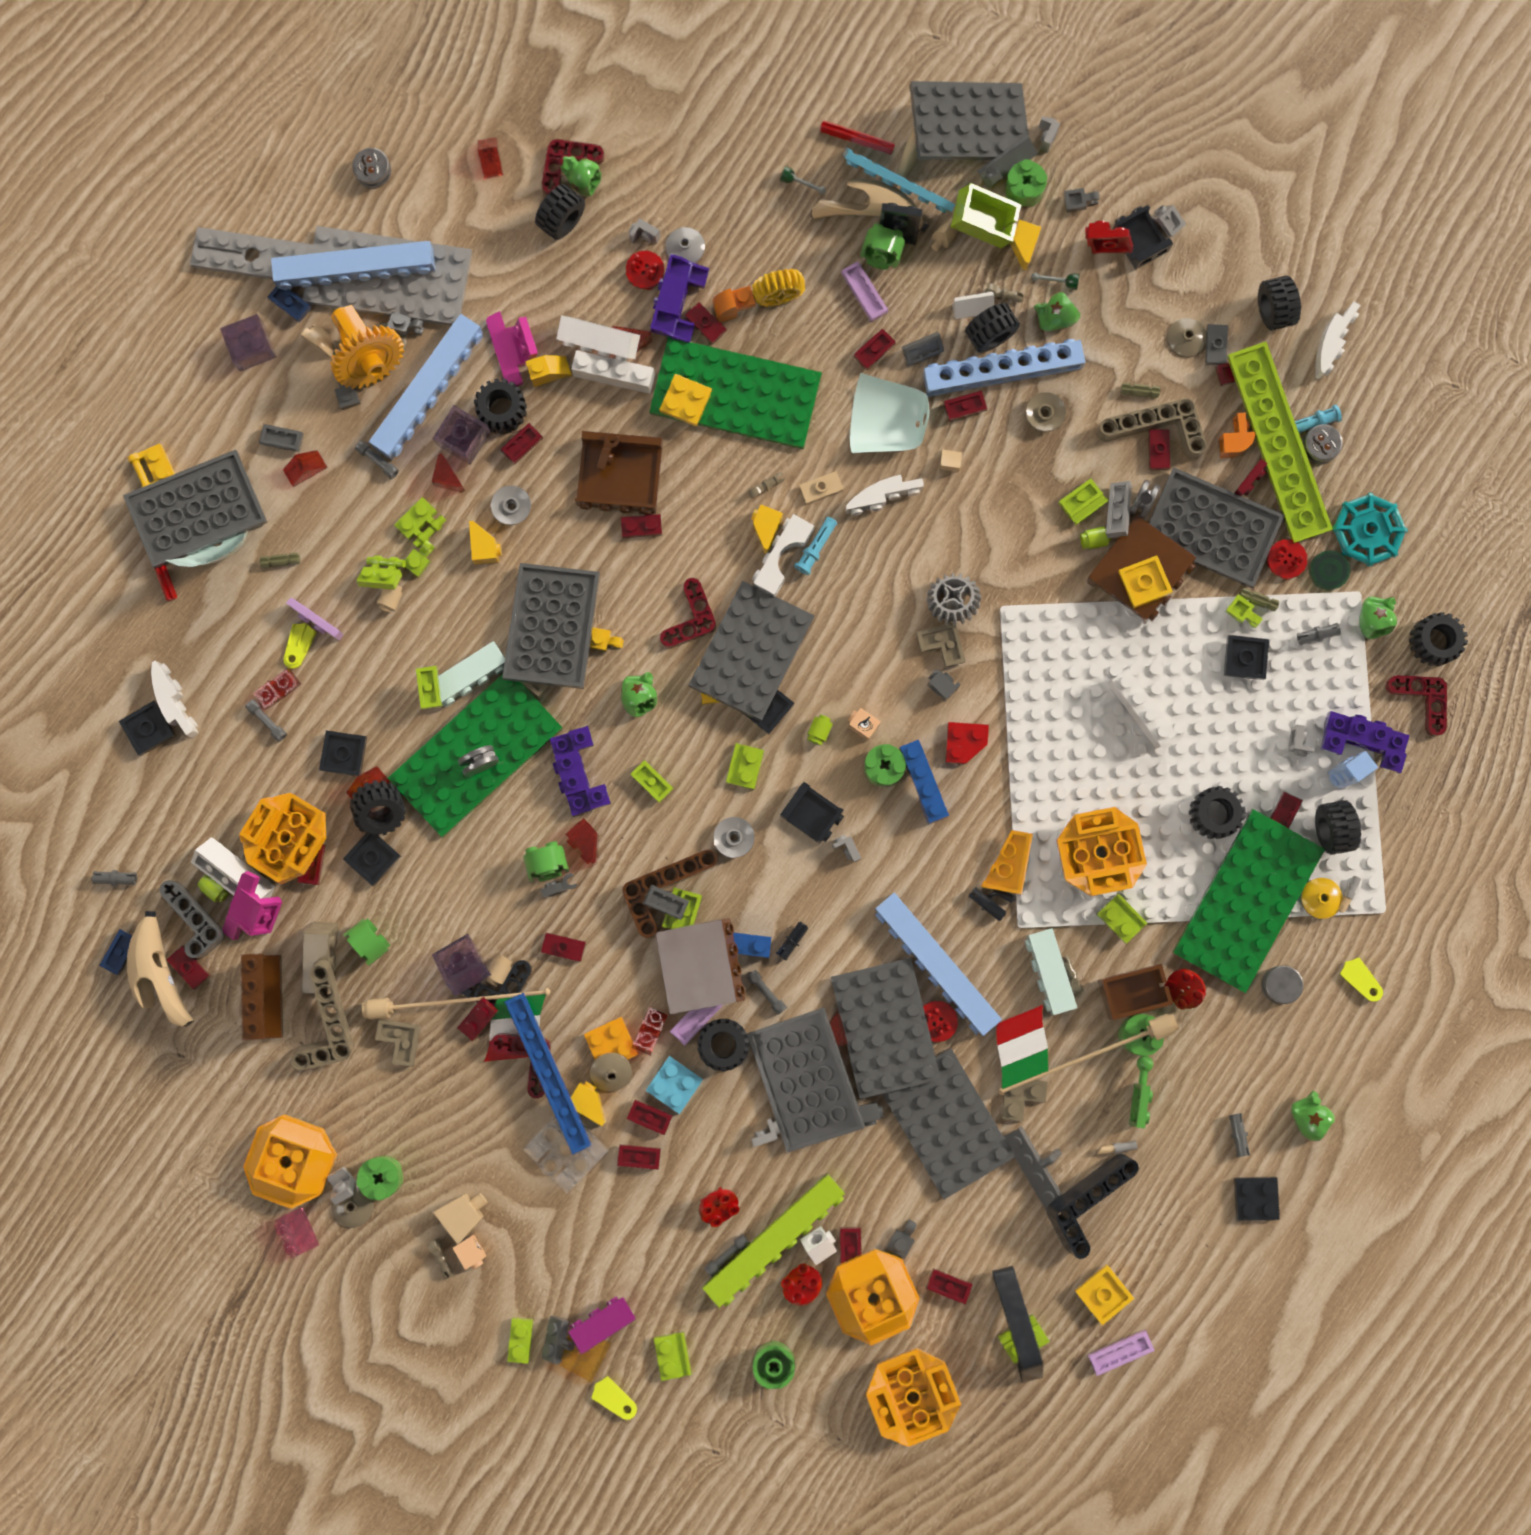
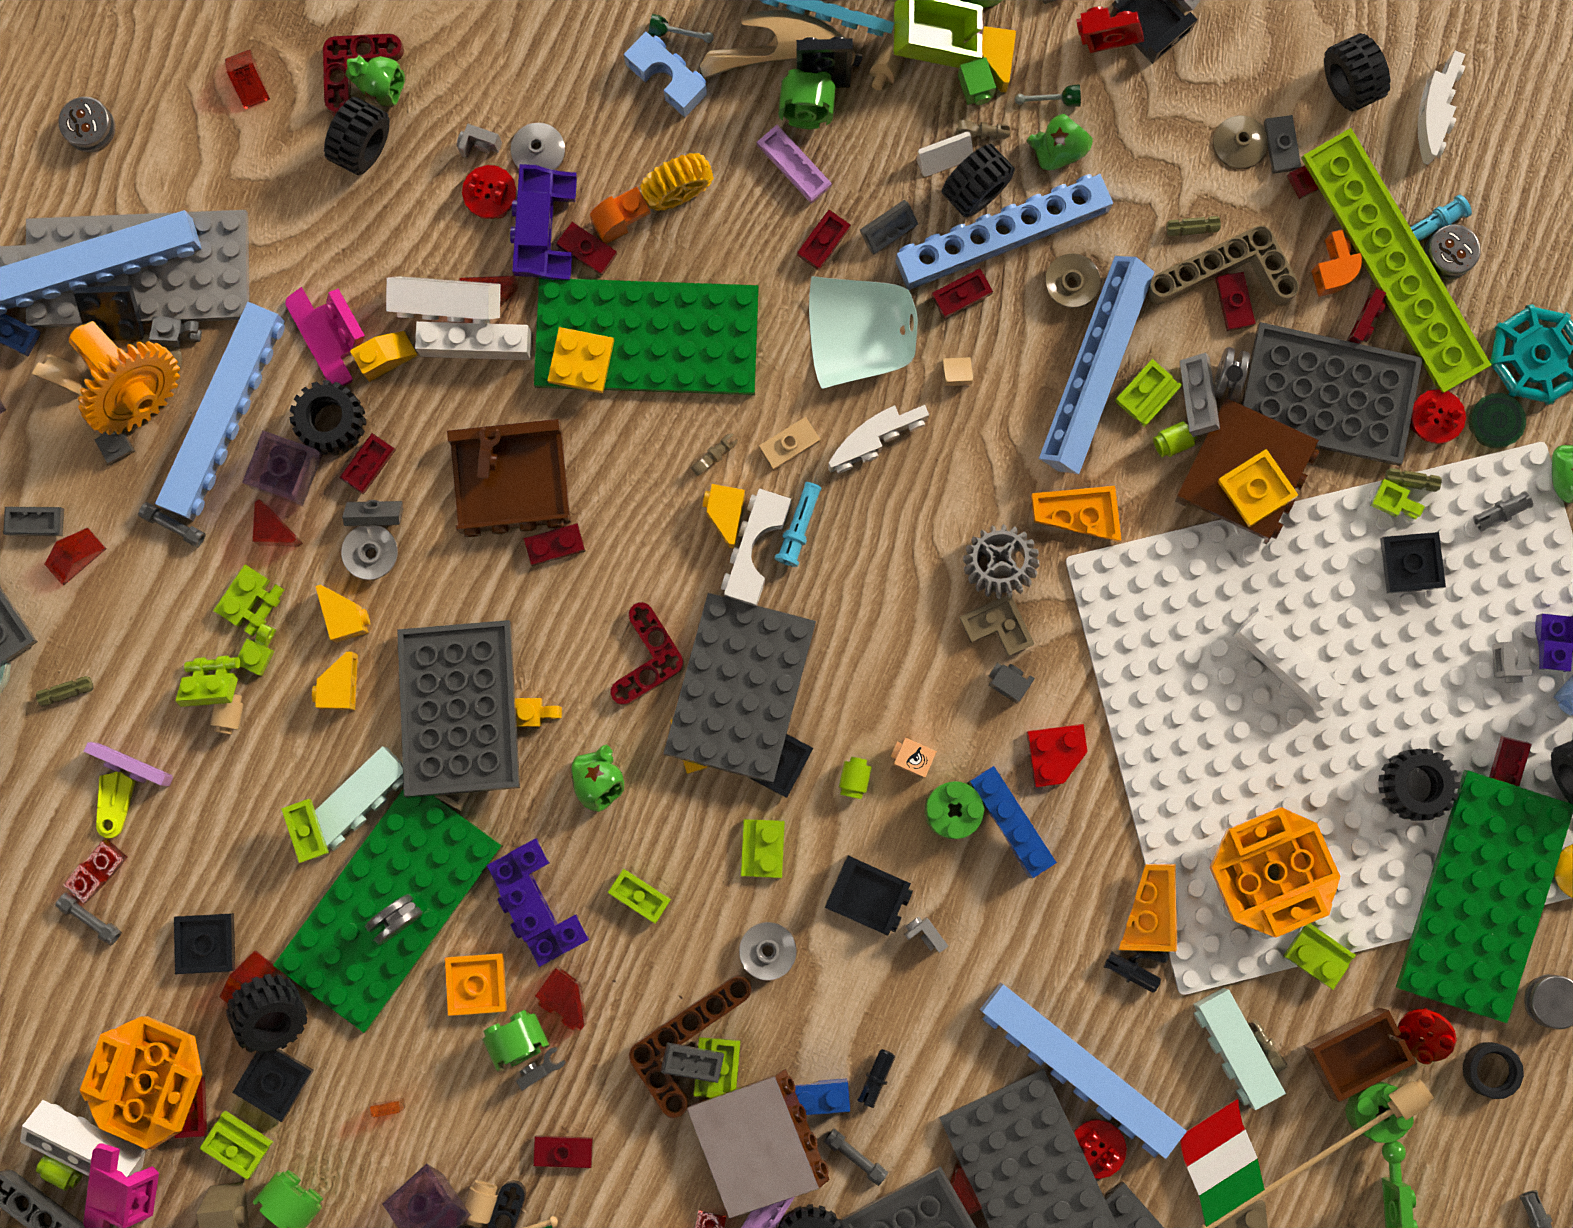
camera: 15 degrees left, 0 degrees up
(338, 896) = (236, 1145): none -> lime plate
(365, 299) = (111, 309): none -> black plate
(447, 891) = (387, 1107): none -> clear orange tile
(470, 593) = (337, 685): none -> yellow slope
(518, 478) = (372, 513): none -> dark grey plate
(525, 819) = (475, 984): none -> light orange plate
(778, 196) = (650, 57): none -> light blue arch
(1006, 258) = (977, 81): none -> bright green brick
(1017, 574) = (1079, 510): none -> light orange wing
(1050, 474) = (1096, 364): none -> light blue brick
(1244, 1026) = (1514, 1077): none -> black tyre

